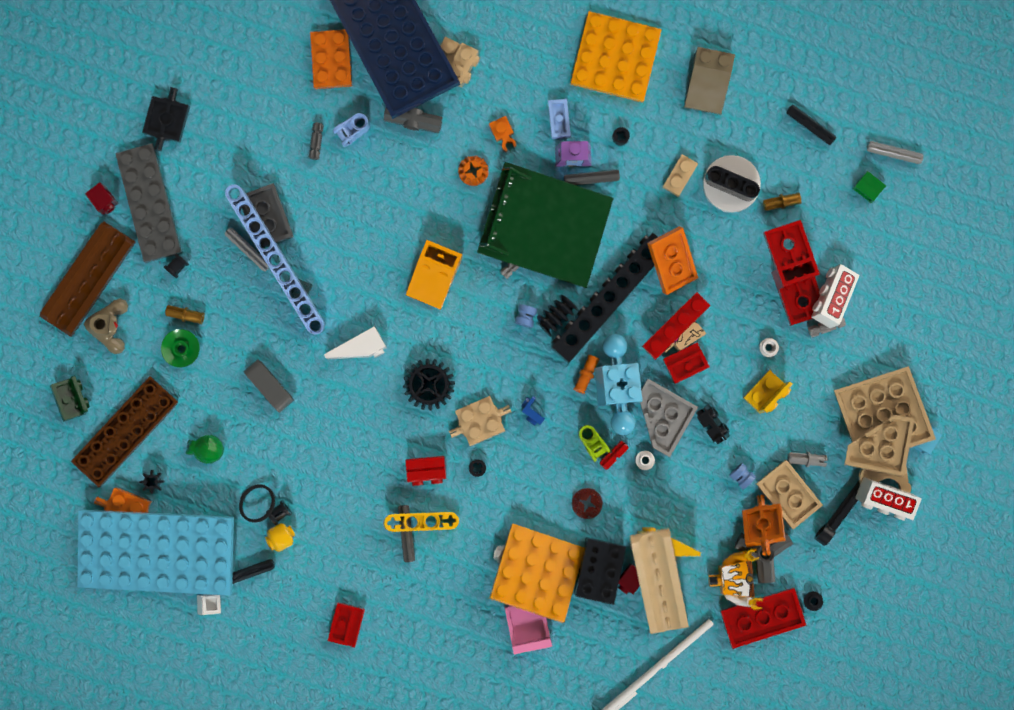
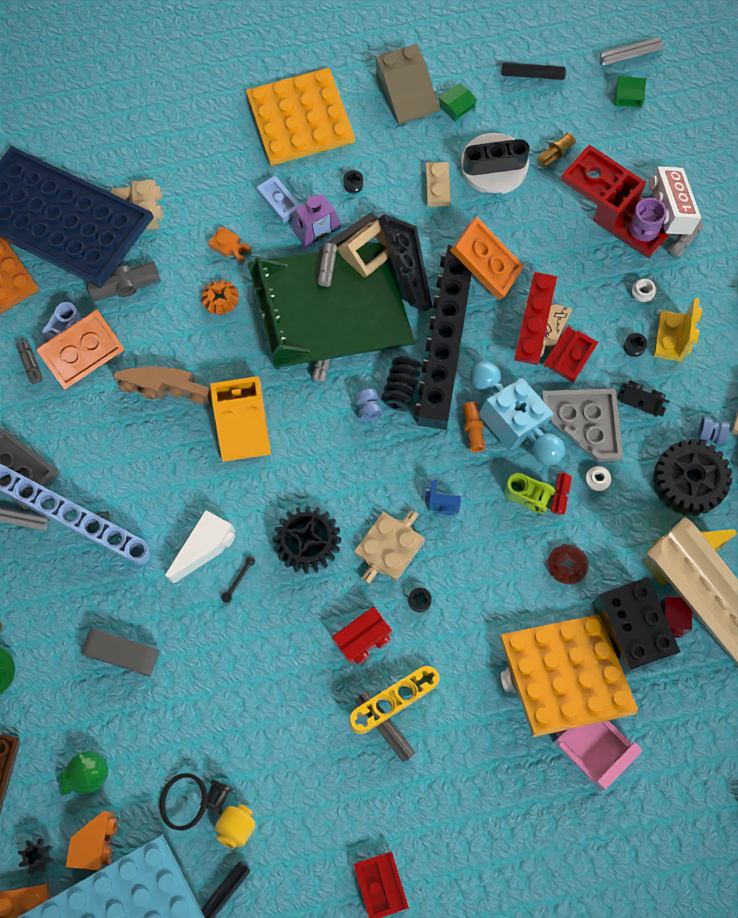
camera: 25 degrees left, 15 degrees down
(188, 495) = (91, 844): none -> orange slope
(354, 155) = (80, 349): none -> orange plate
(356, 389) = (226, 597): none -> black hinge
(392, 211) = (156, 381): none -> medium nougat slope
(560, 195) = (327, 264): none -> light grey axle
(596, 189) = (348, 248): none -> tan tile
(619, 224) = (408, 259): none -> black wing
(721, 500) = (688, 495): none -> black wheel
(735, 377) = (629, 342): none -> black bush
(737, 116) = (457, 101): none -> green piece
(803, 301) = (647, 219): none -> medium lavender wheel

